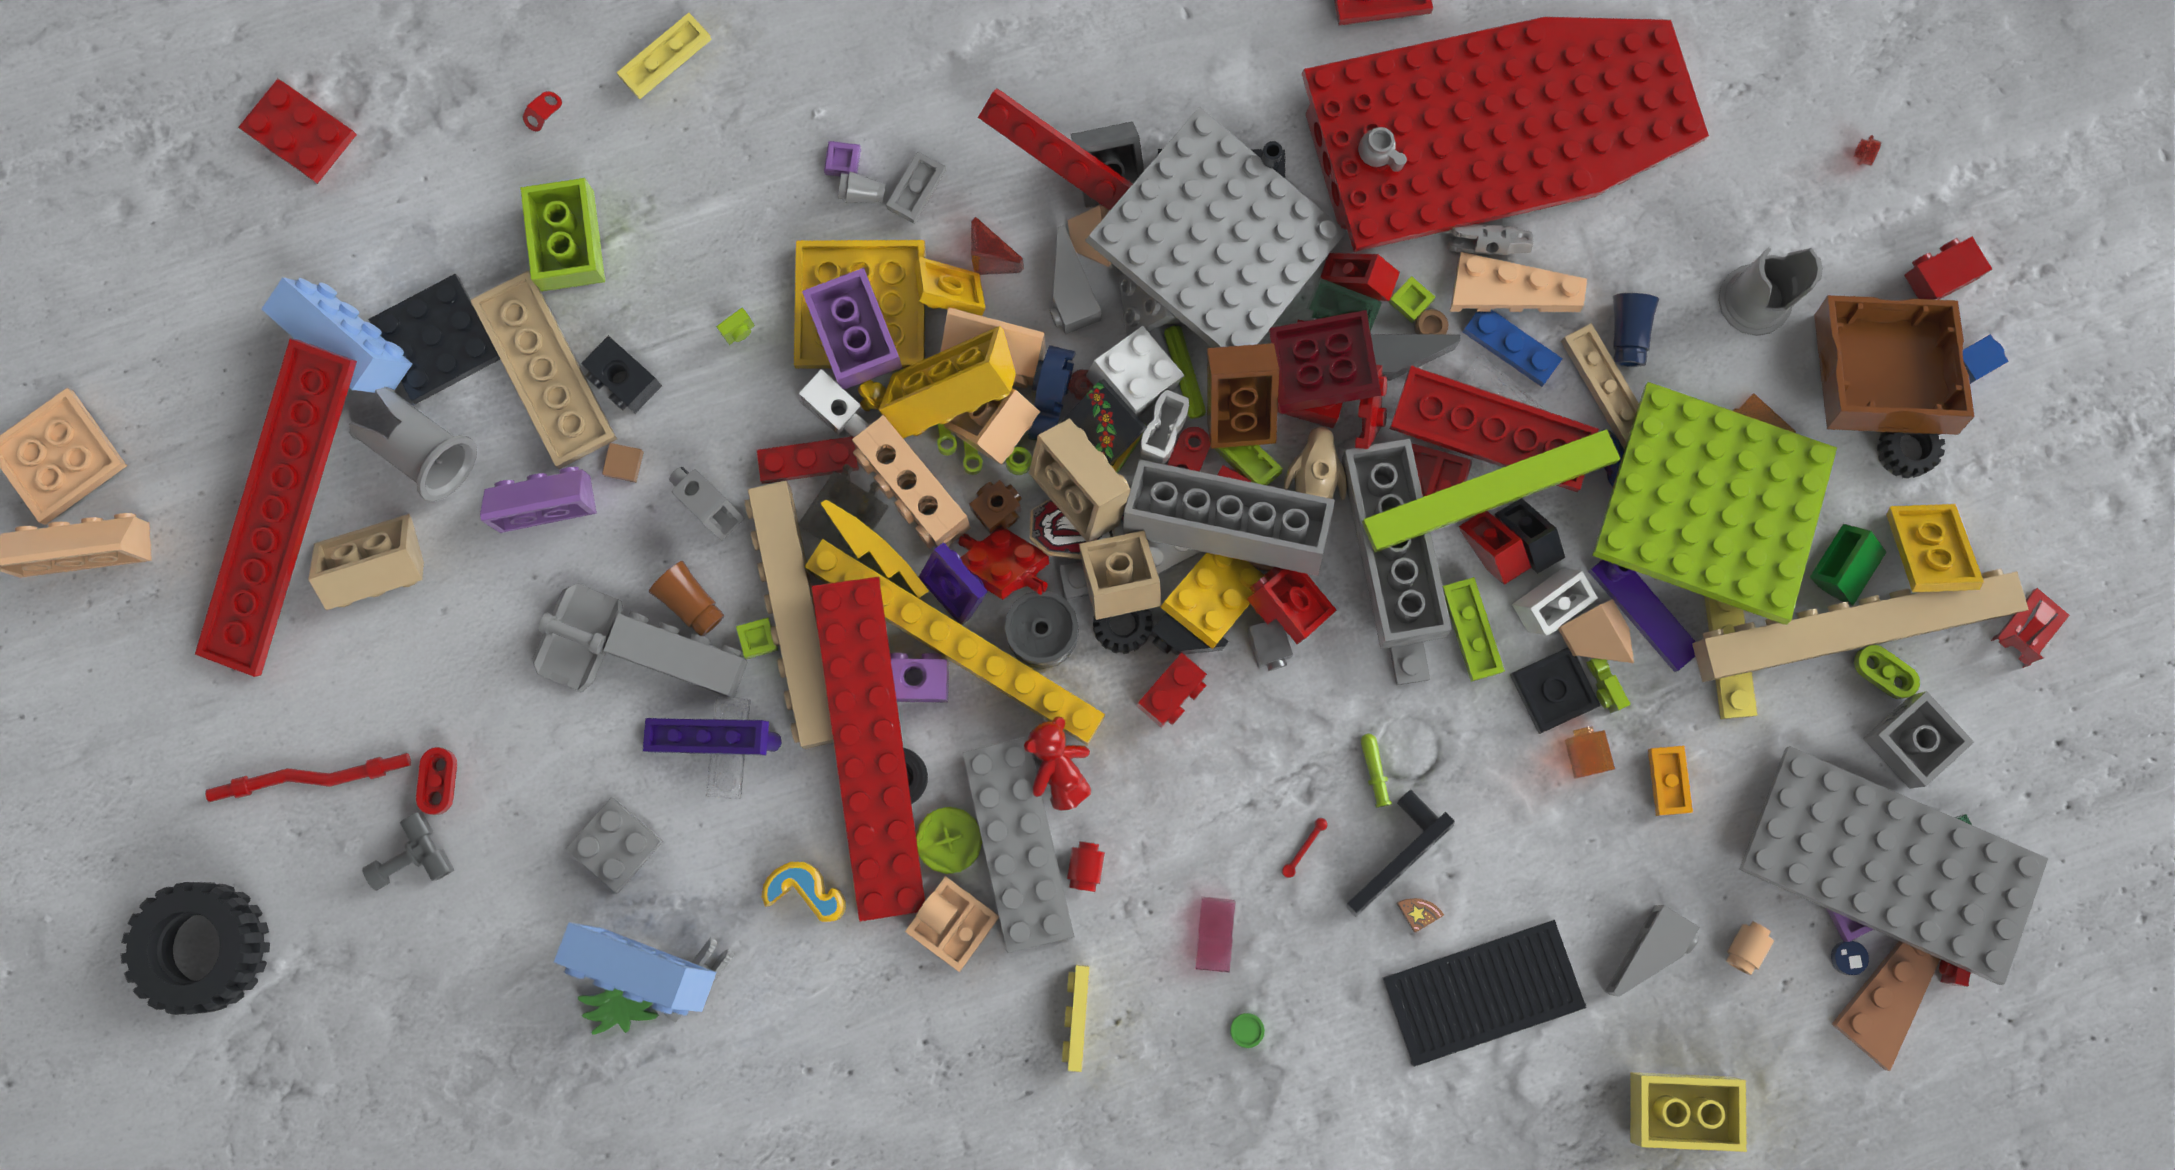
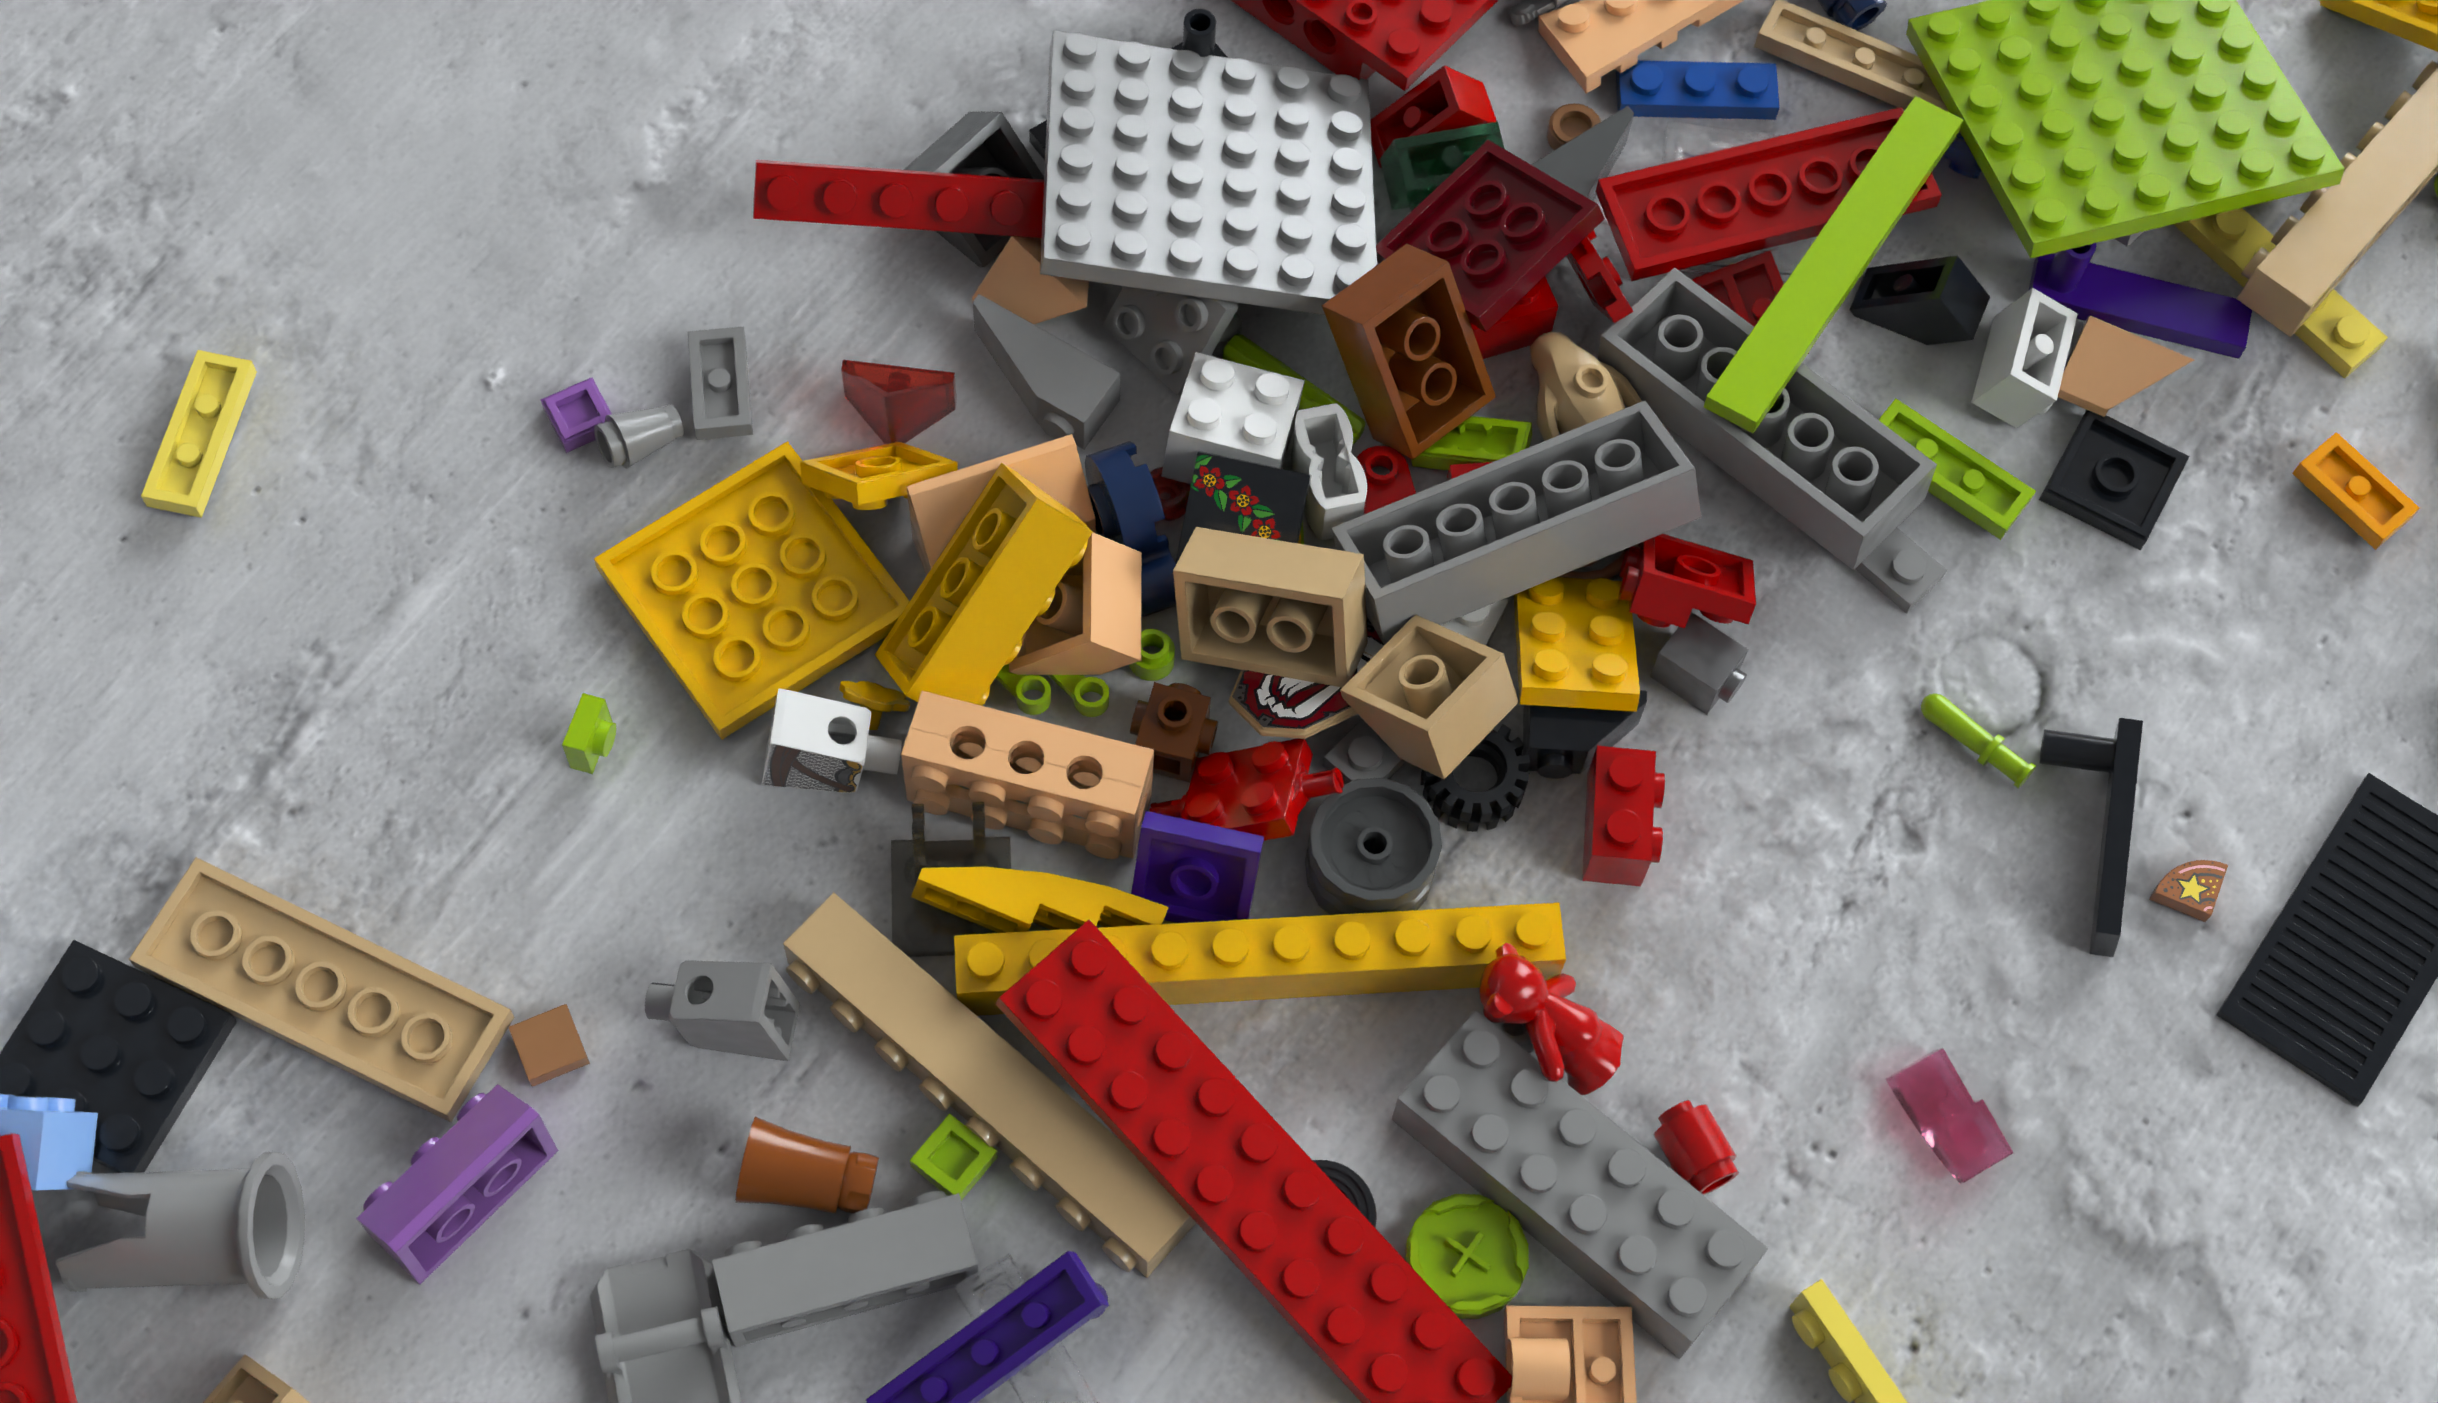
camera: 40 degrees left, 15 degrees down
(541, 110) = (52, 623): red piece -> none
(562, 234) = (219, 768): lime brick -> none
(610, 359) = (428, 895): black brick -> none
(806, 460) = (835, 855): red plate -> none
(852, 329) = (779, 610): medium lavender brick -> none
(935, 678) = (1269, 1032): medium lavender brick -> none
(1247, 1030) = (2101, 1221): bright green piece -> none
(1289, 869) = (1973, 956): red hinge -> none
(1411, 299) = (1524, 110): lime plate -> none
(1496, 546) = (1891, 342): red slope -> none
(1589, 752) = (2228, 523): clear orange brick -> none
(1609, 692) = (2180, 424): lime plate -> none
(1848, 563) = (2332, 81): green brick -> none

